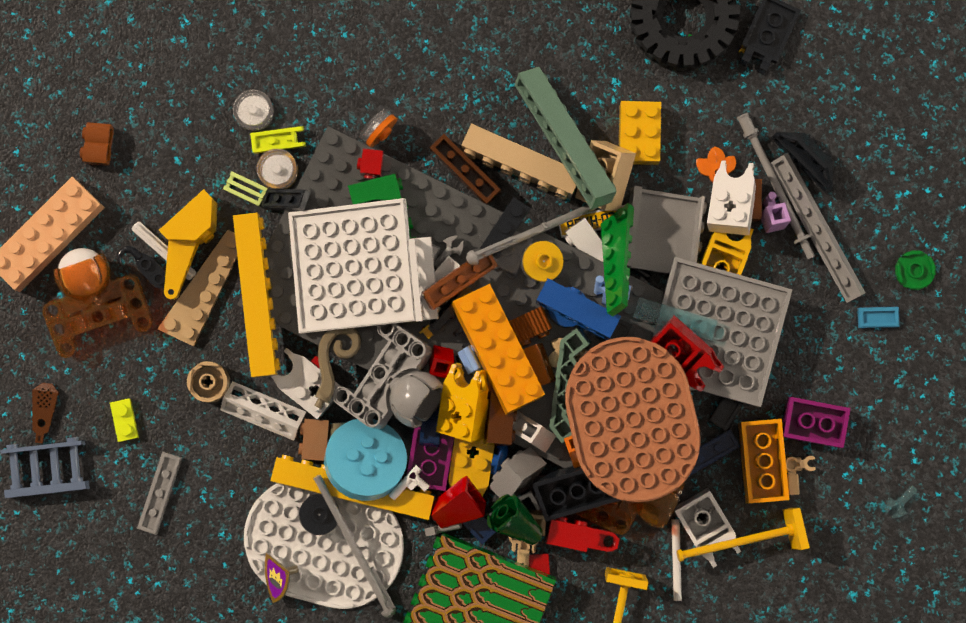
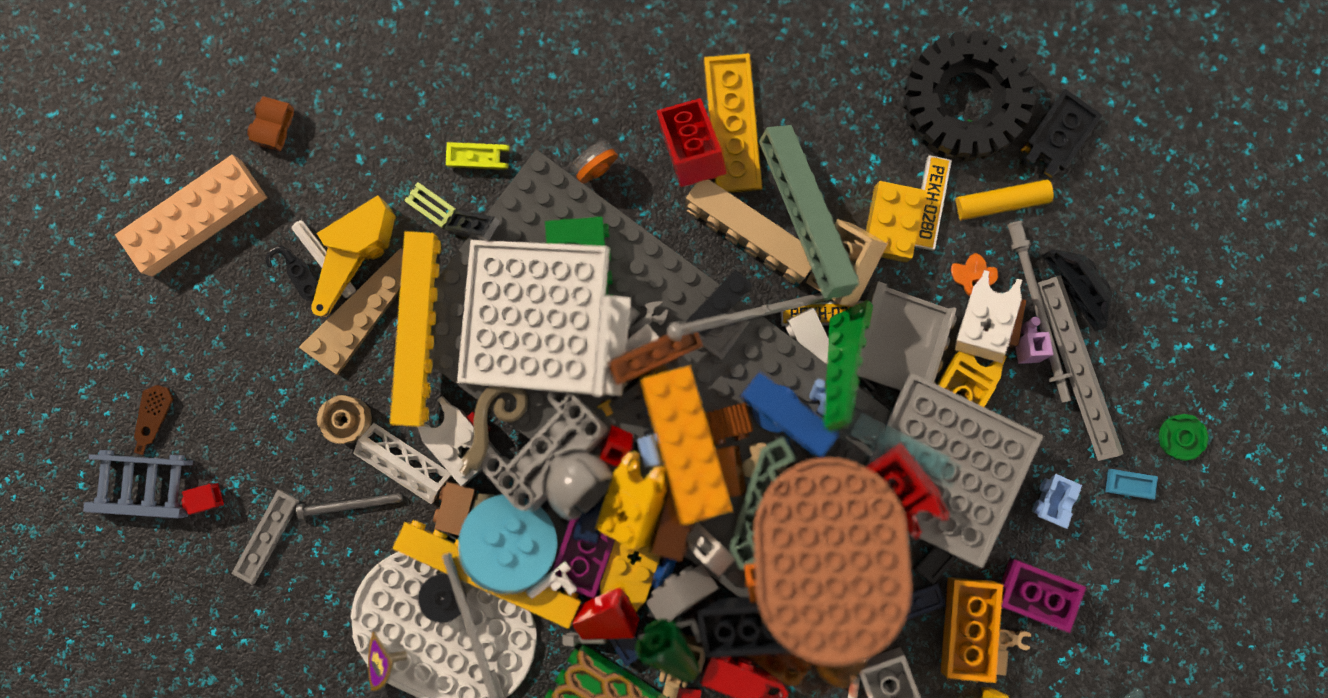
camera: 10 degrees right, 0 degrees up
(84, 280) = (225, 275): clear orange beam -> none
(100, 470) = (202, 498): none -> red brick
(124, 420) = (241, 444): neon yellow plate -> none
(187, 466) = (303, 511): none -> flat silver bar
(253, 110) = (455, 117): clear piece -> none
(277, 169) = (470, 189): clear piece -> none
(370, 163) = (577, 200): red brick -> none
(457, 97) = (691, 142): none -> red brick
(465, 170) = (684, 227): reddish brown brick -> none
(489, 73) = (734, 120): none -> yellow tile
(541, 261) = (755, 350): yellow piece -> none
(670, 110) = (935, 185): none -> tile
(730, 97) = (1004, 199): none -> yellow brick
(817, 341) = (1057, 500): none -> light blue cylinder

